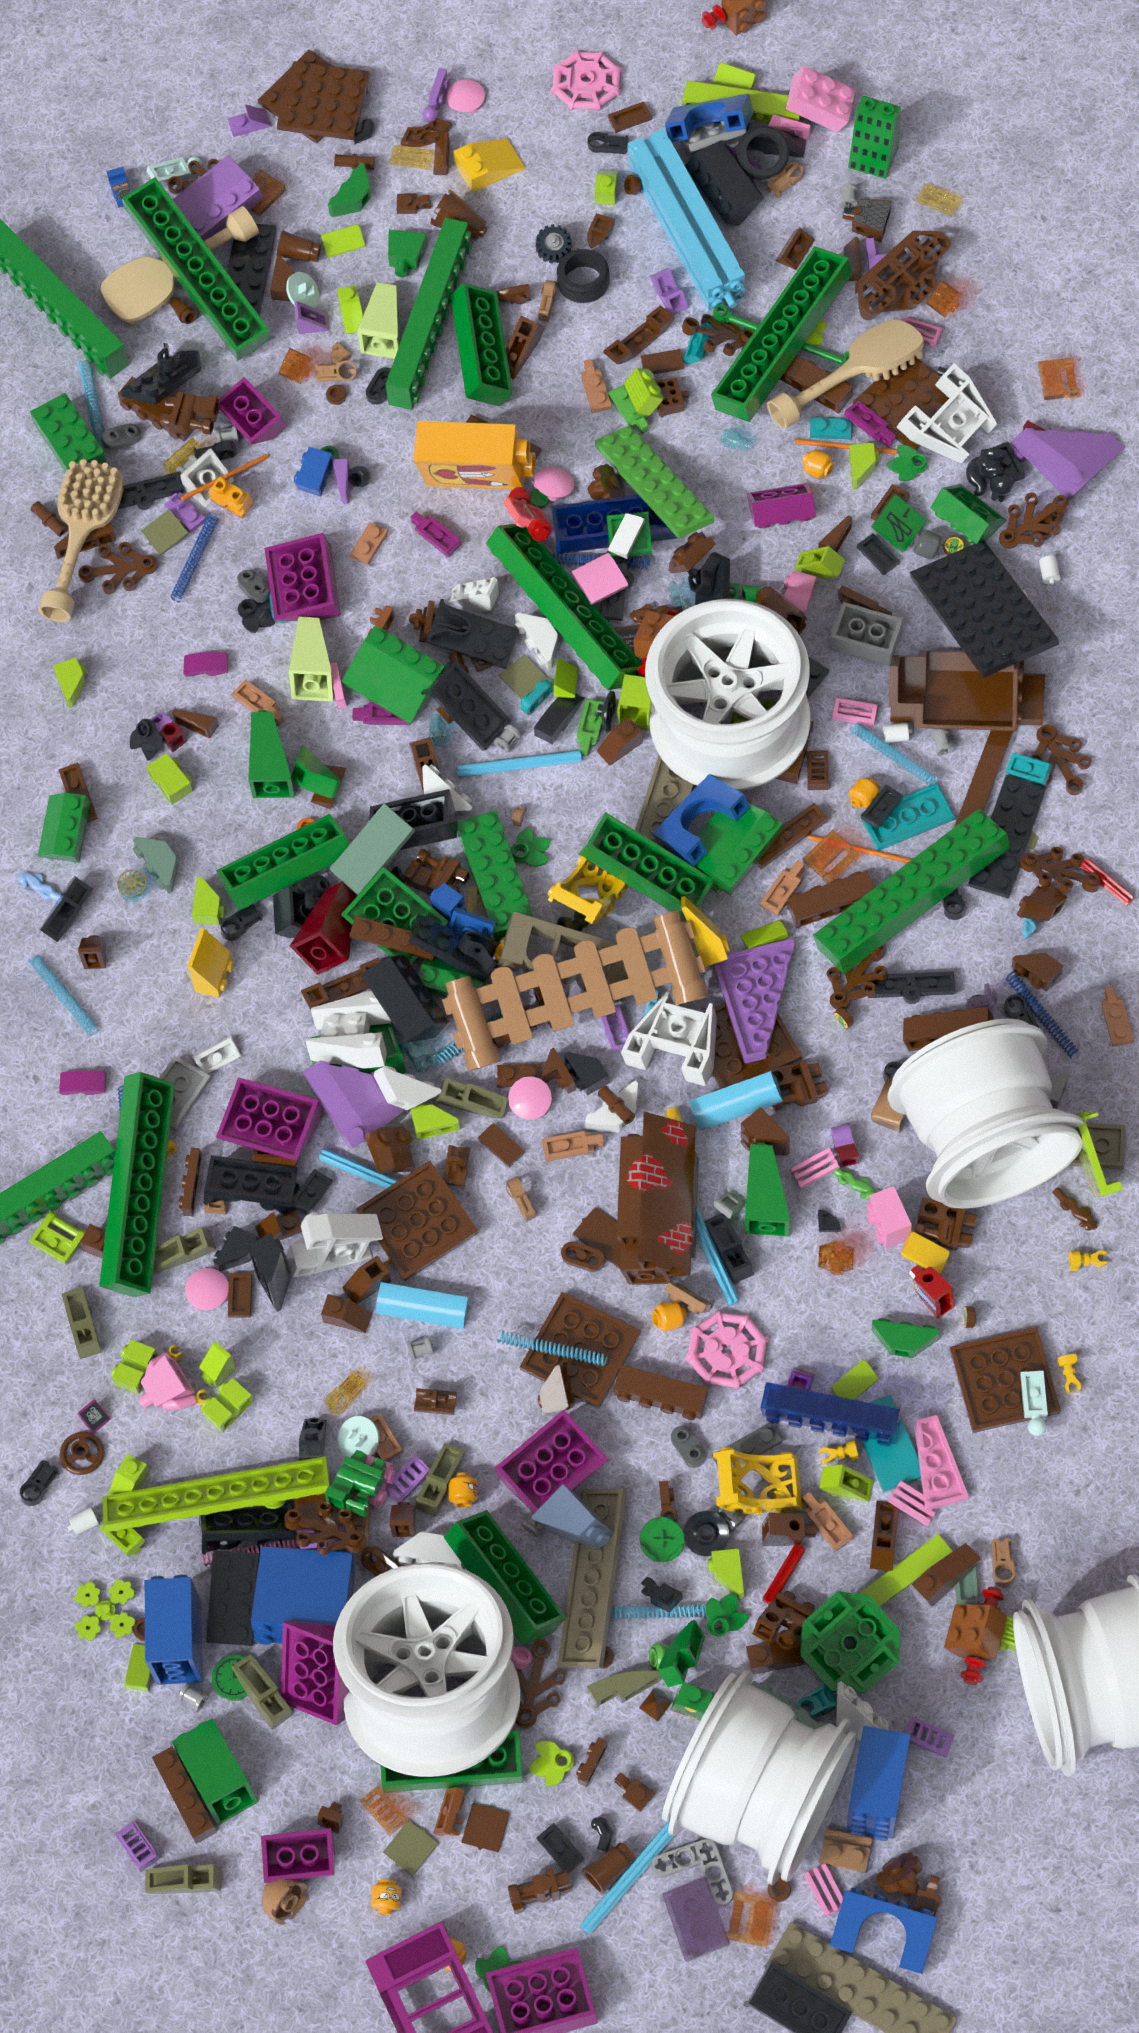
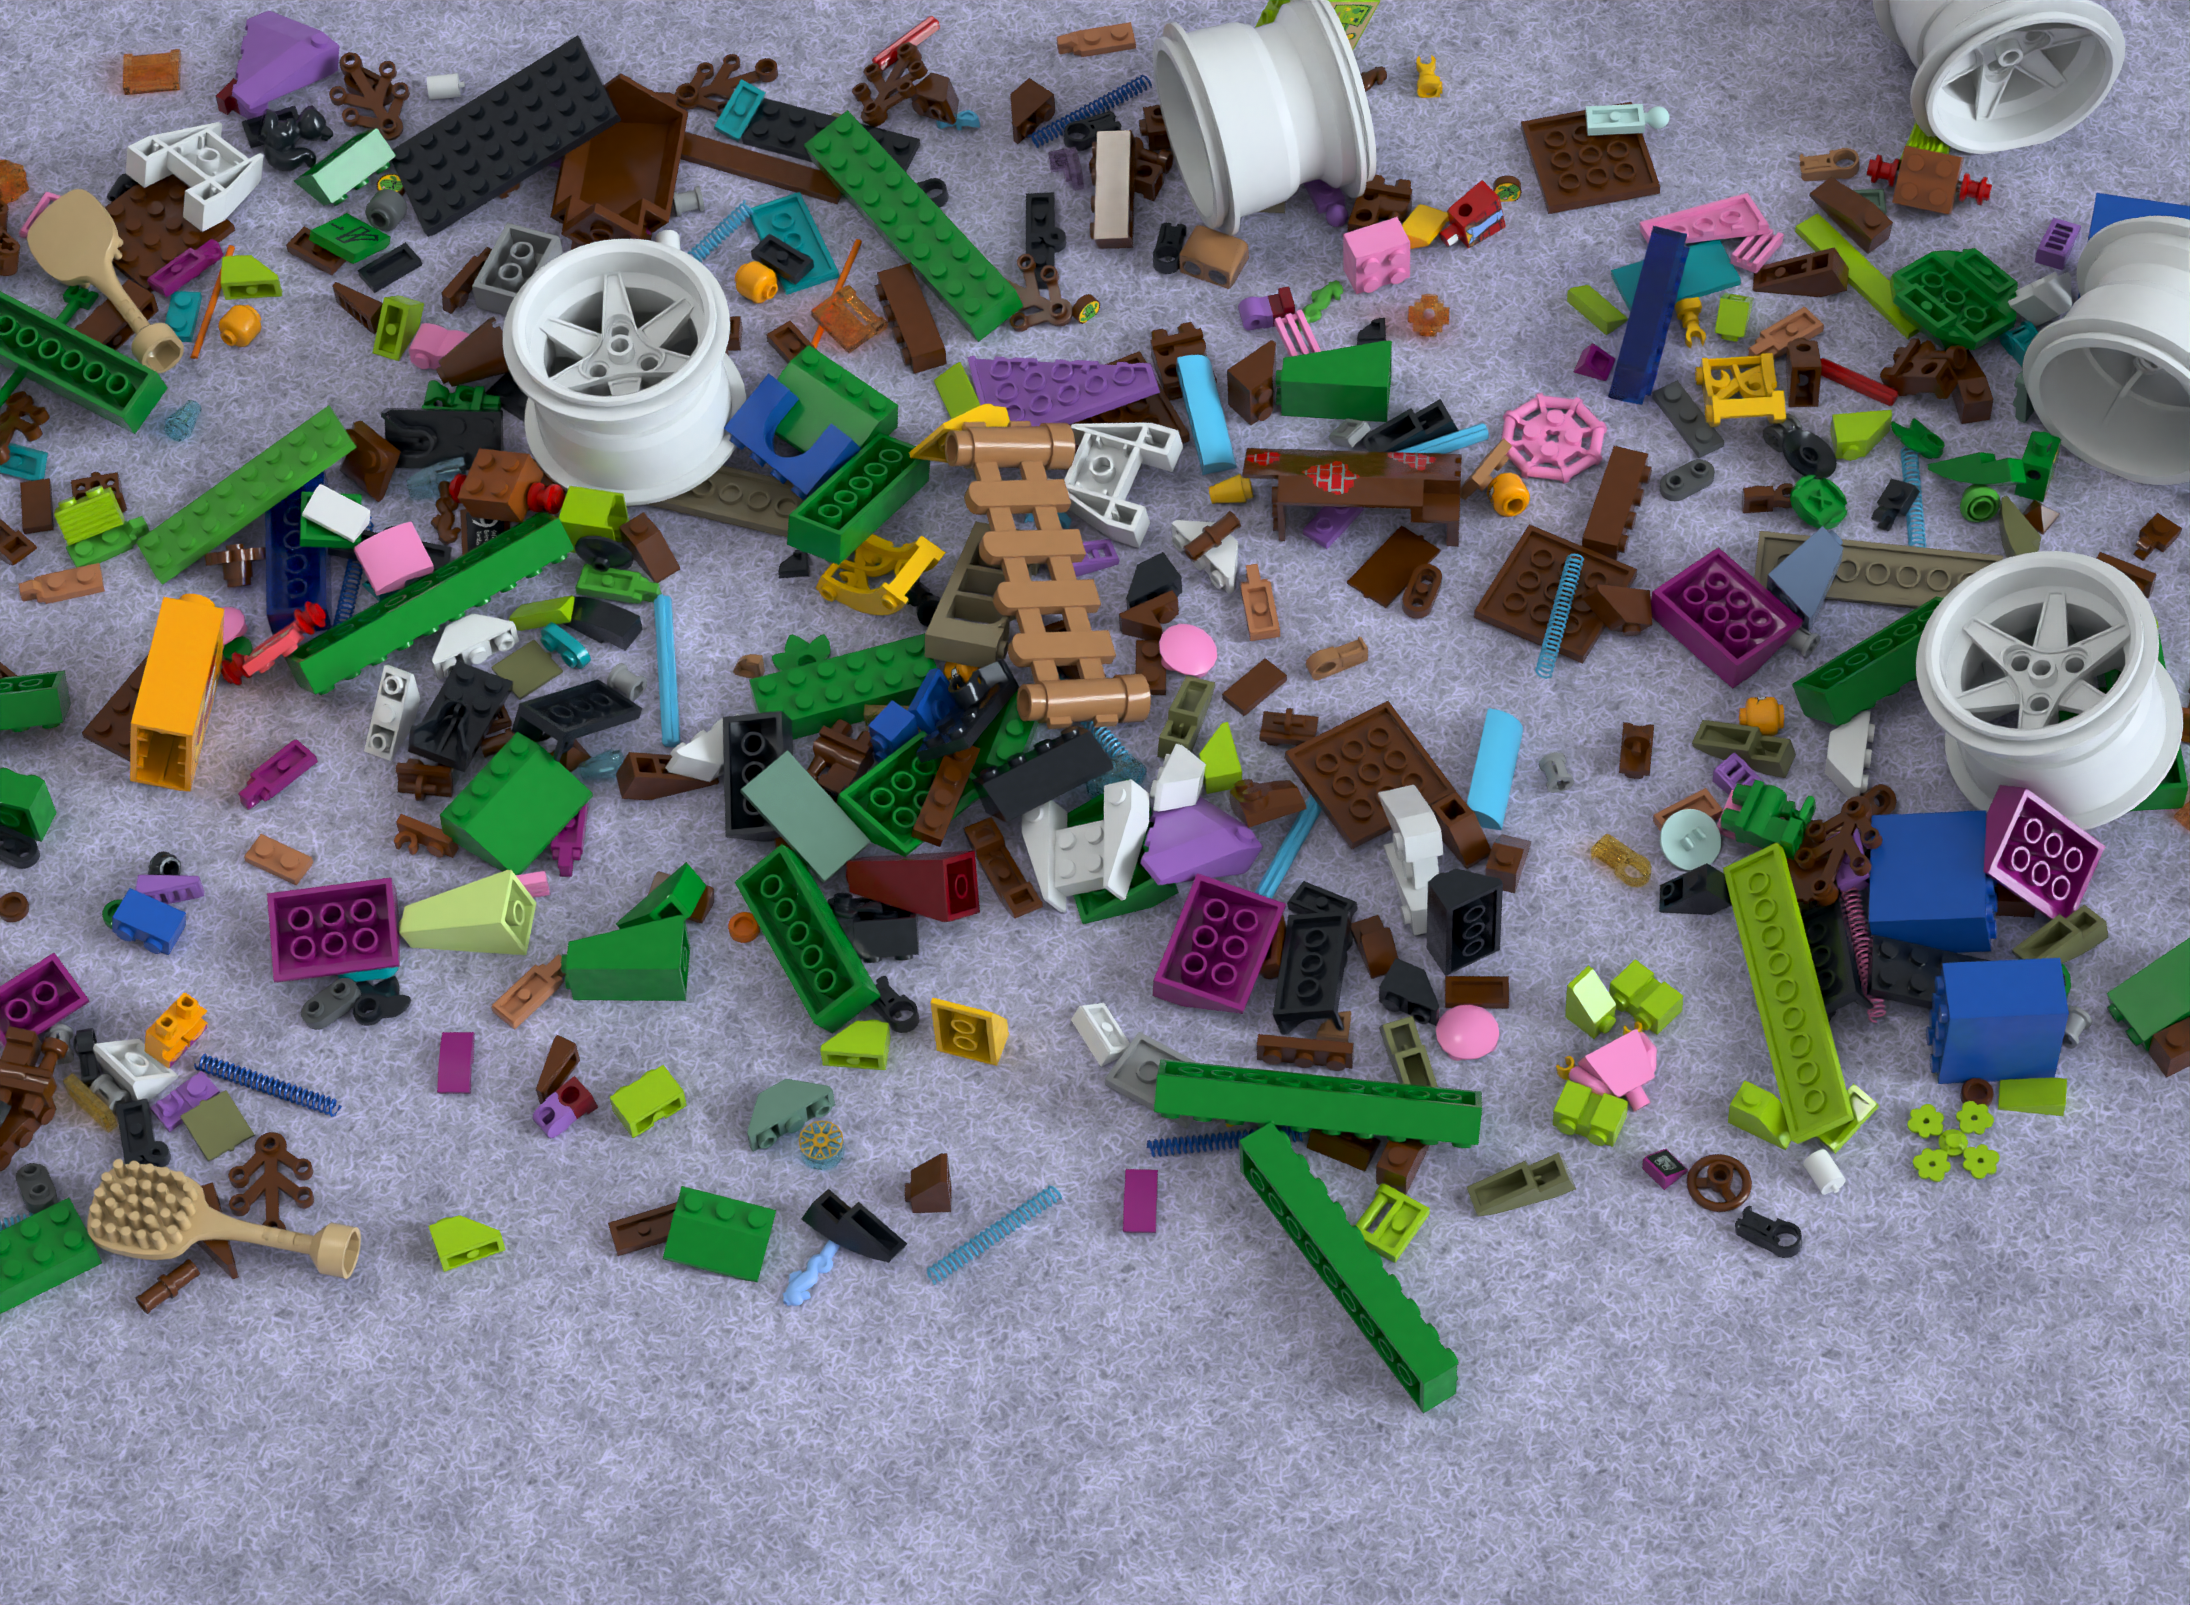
camera: 90 degrees left, 10 degrees down
(146, 738) = (581, 1133): black plate -> none
(226, 476) = (136, 1043): orange axle -> none
(403, 1520) = (1808, 778): reddish brown slope -> none
(781, 505) = (297, 366): magenta slope -> none
(783, 888) = (890, 371): nougat hinge -> none
(903, 1337) = (1536, 254): green slope -> none
(905, 463) = (253, 235): green plate -> none
(1067, 1362) = (1565, 97): yellow piece -> none

